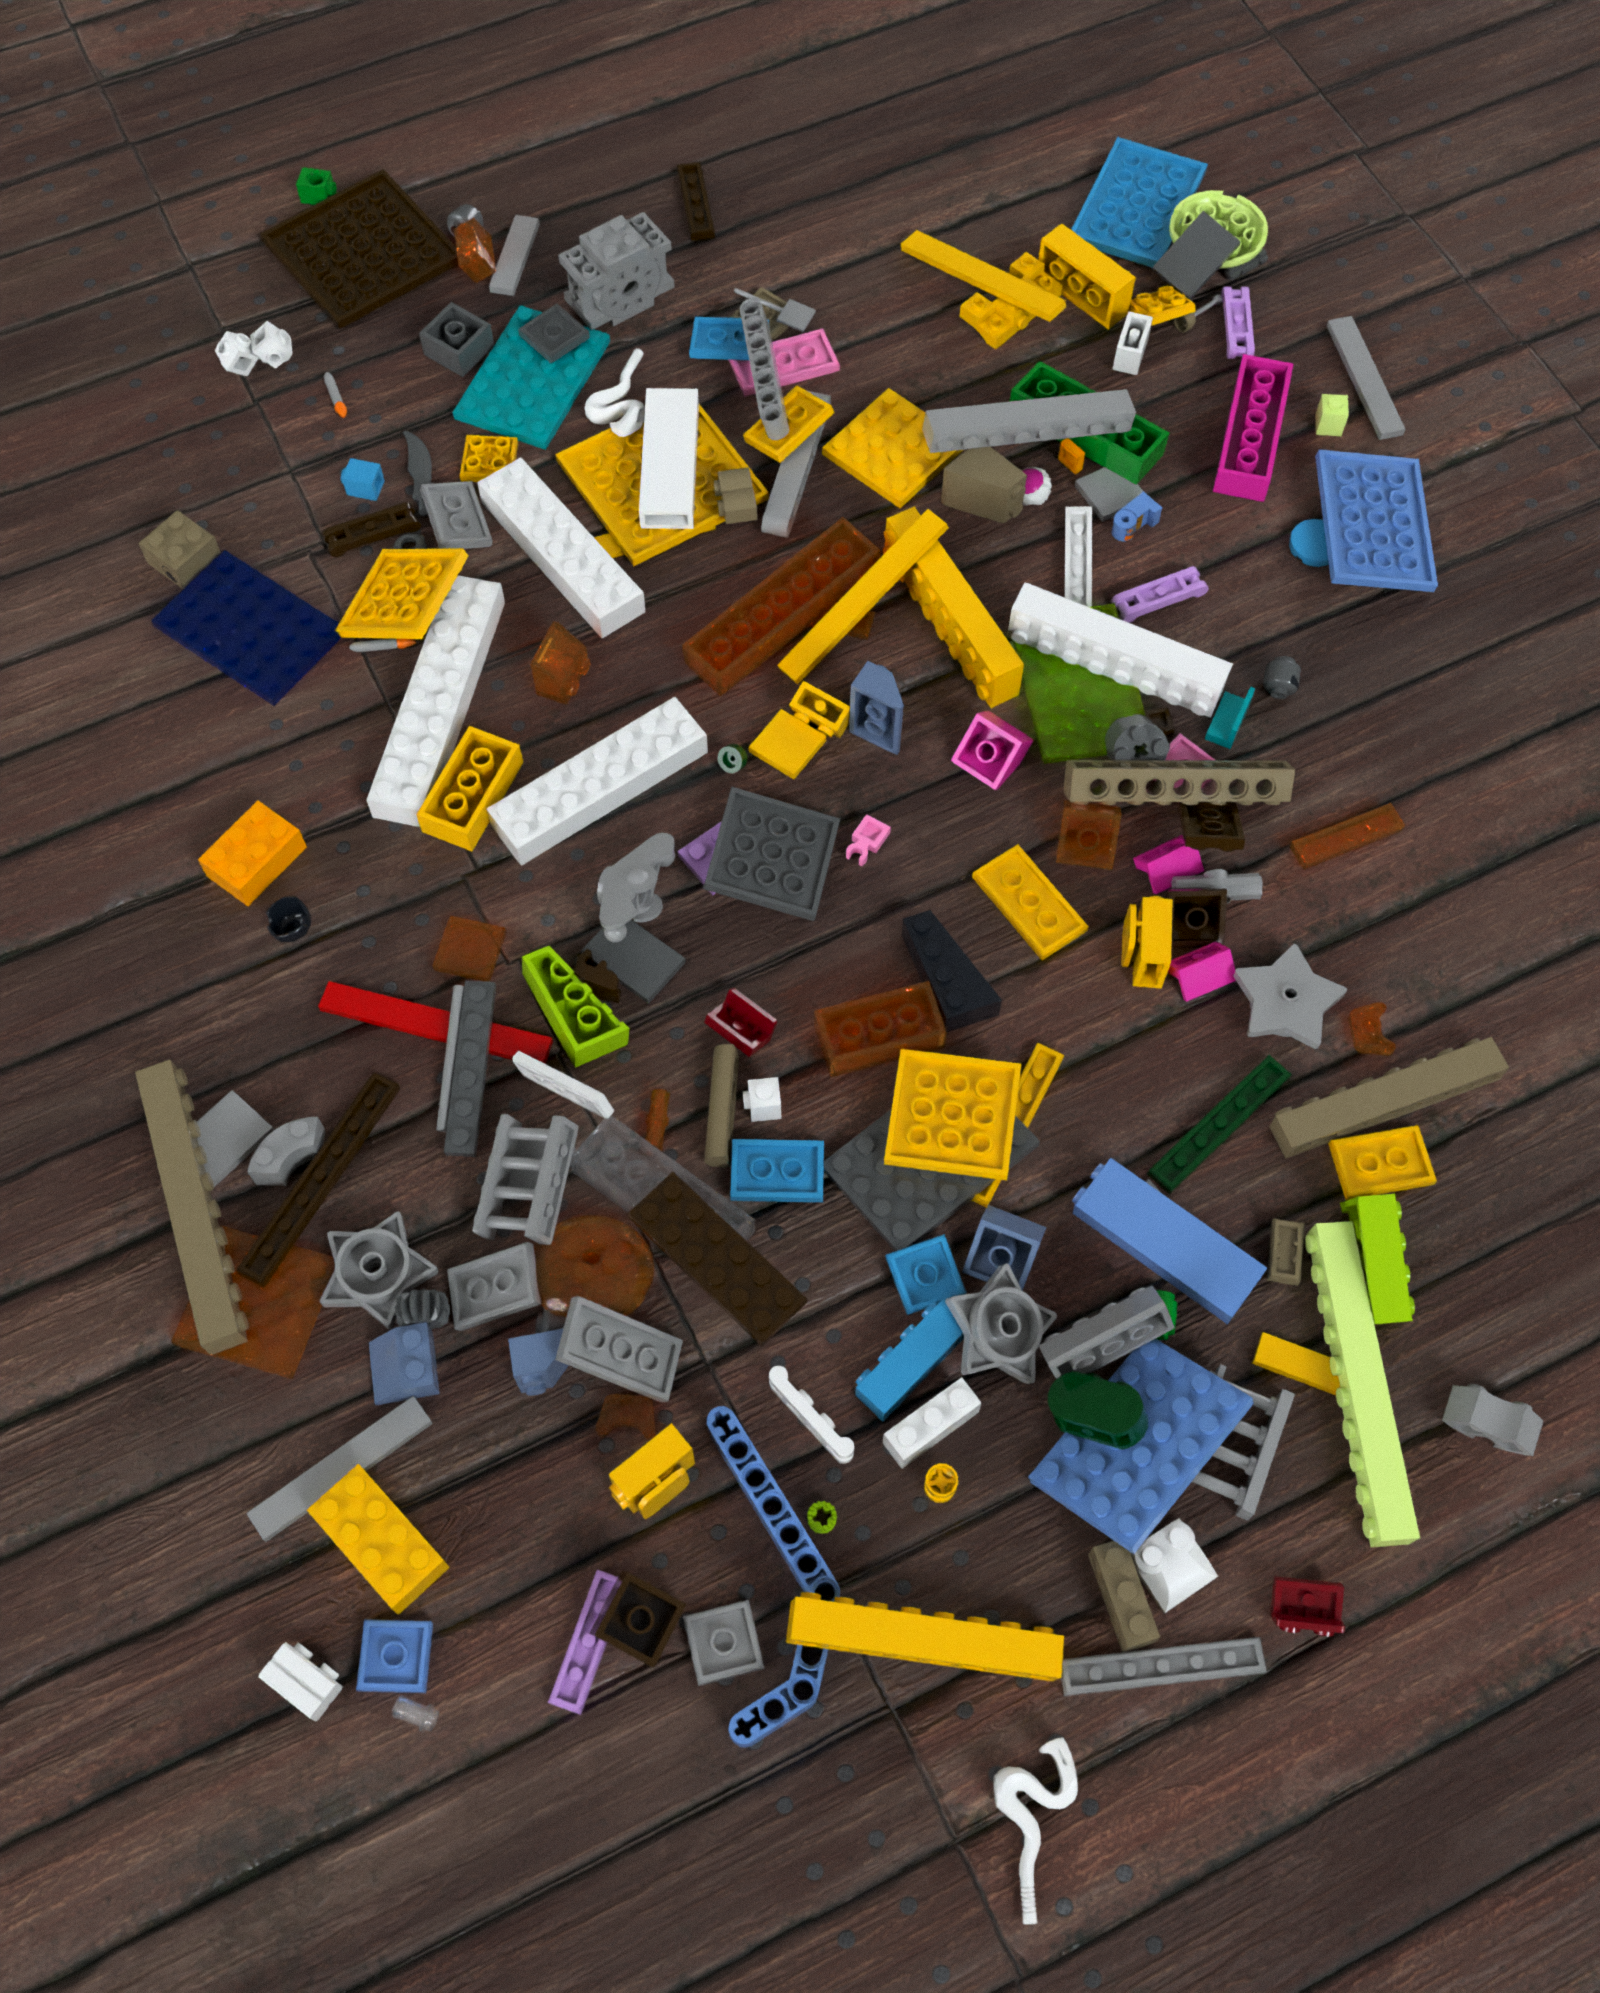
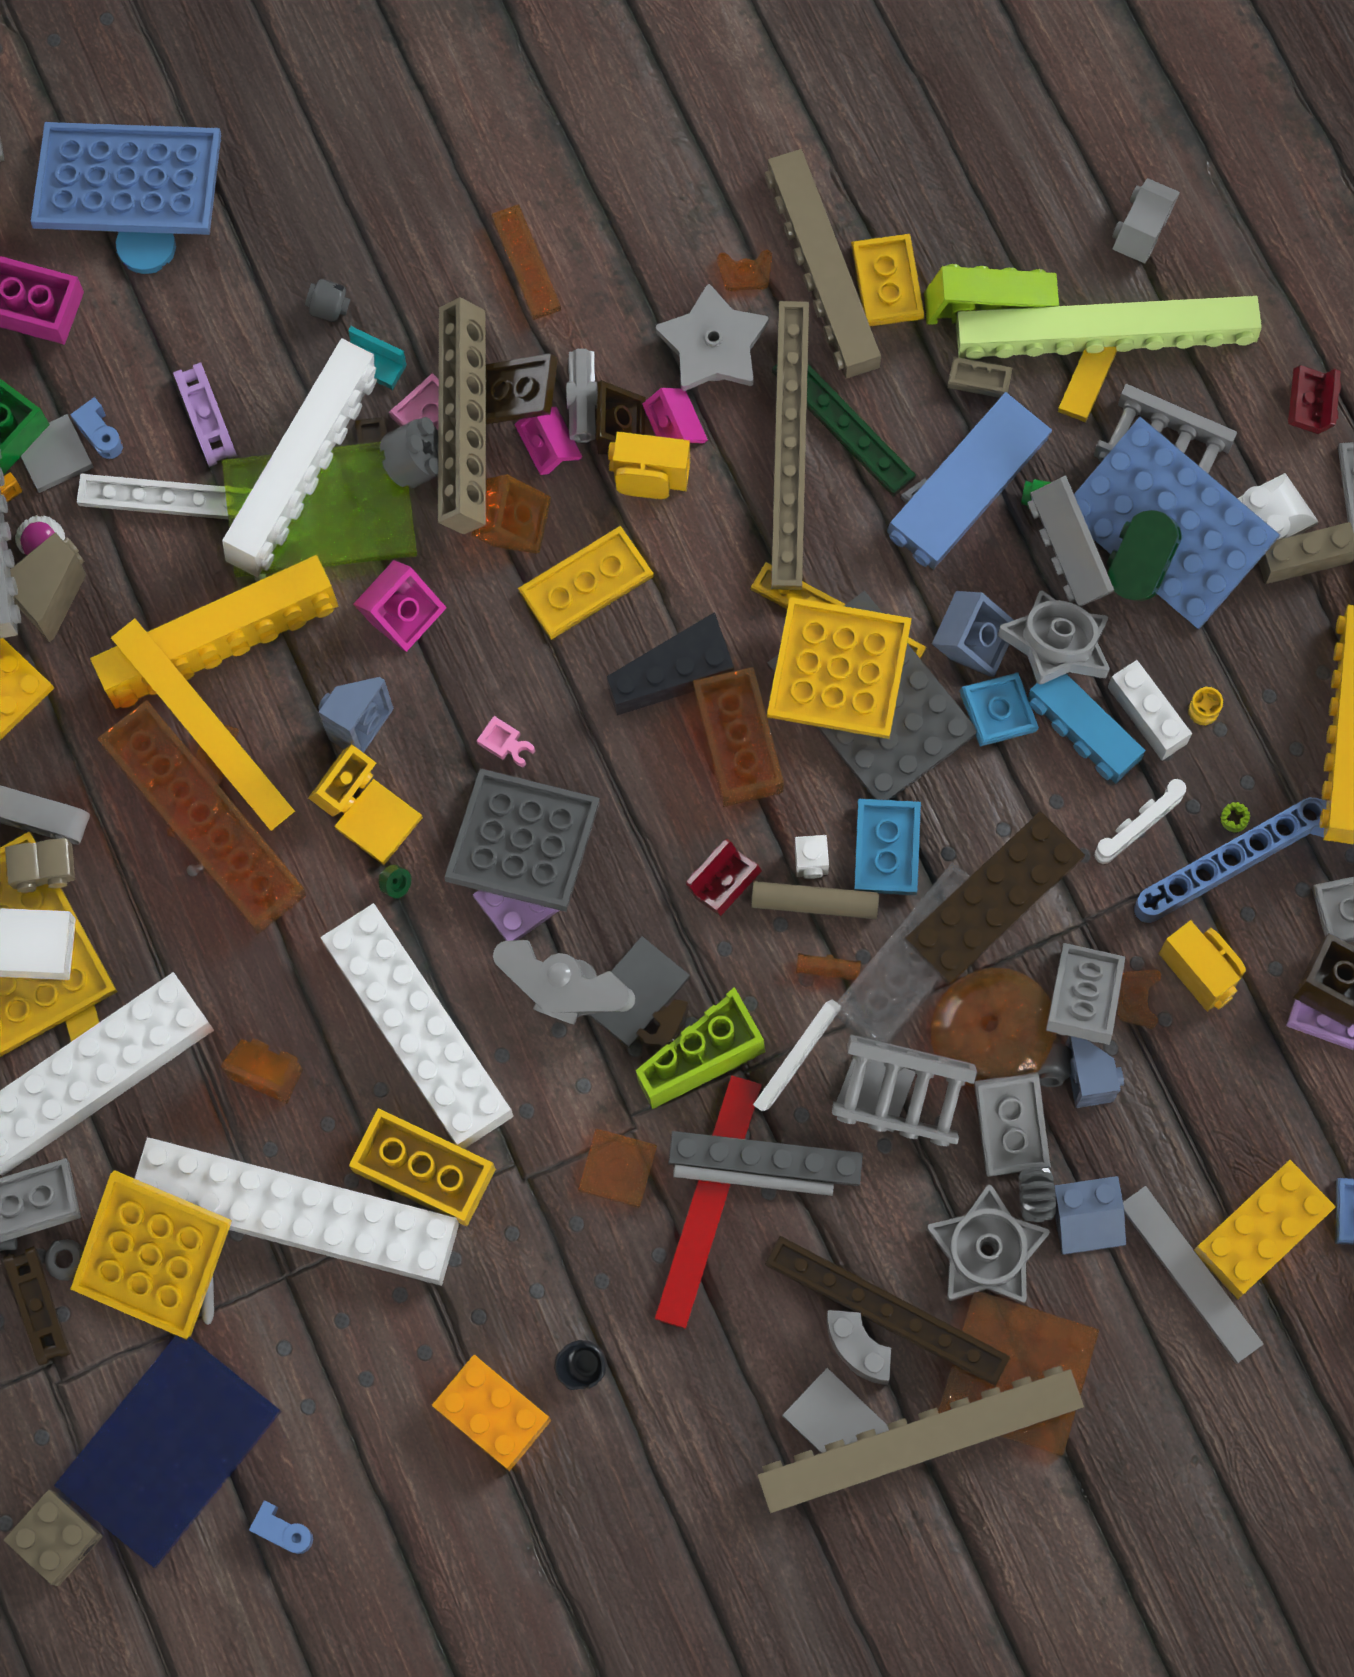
camera: 85 degrees left, 10 degrees up
(170, 705) = (292, 1537): none -> medium blue leg
(1187, 1067) = (790, 446): none -> dark tan plate

